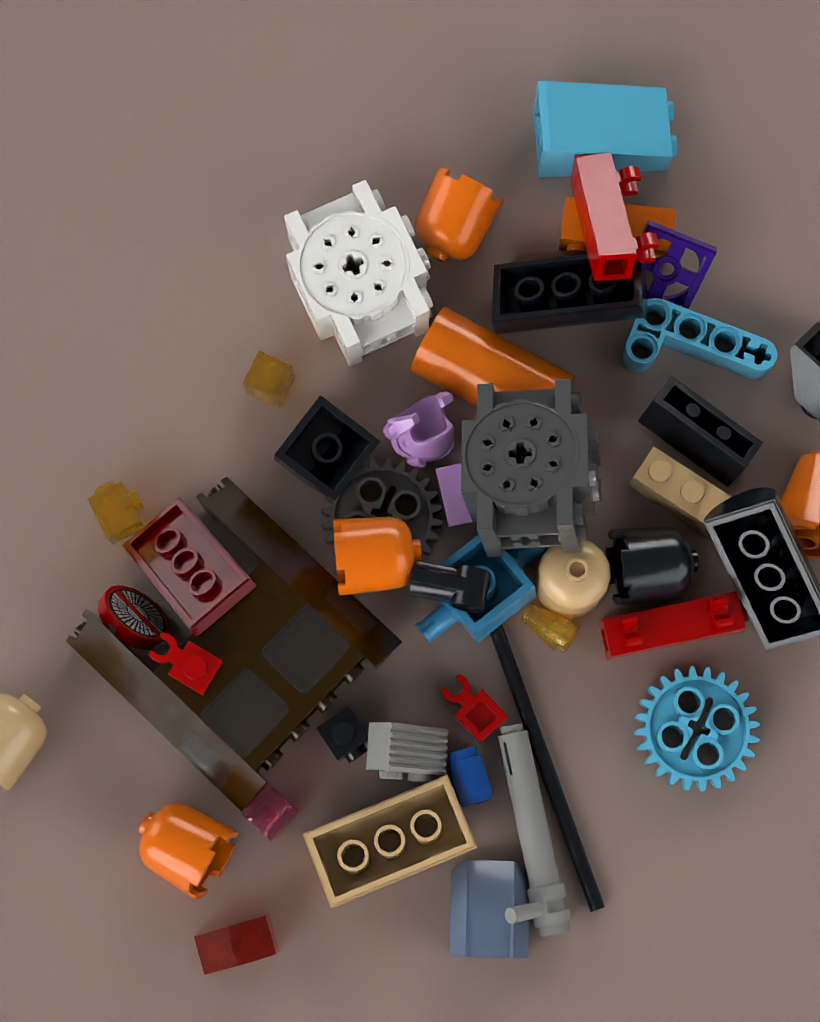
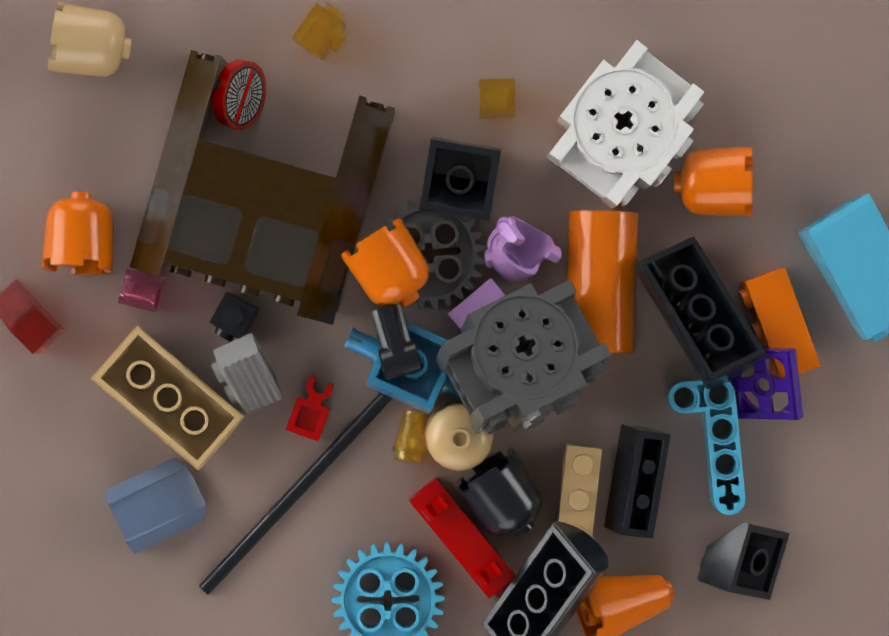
camera: 65 degrees right, 10 degrees up
(189, 566) = (302, 118): dark red tile -> none
(191, 665) = (219, 168): red plate -> none
(469, 777) = (253, 435): blue piece -> none
(546, 891) = (195, 542): light grey cylinder -> none
(604, 217) = (775, 310): brick -> none

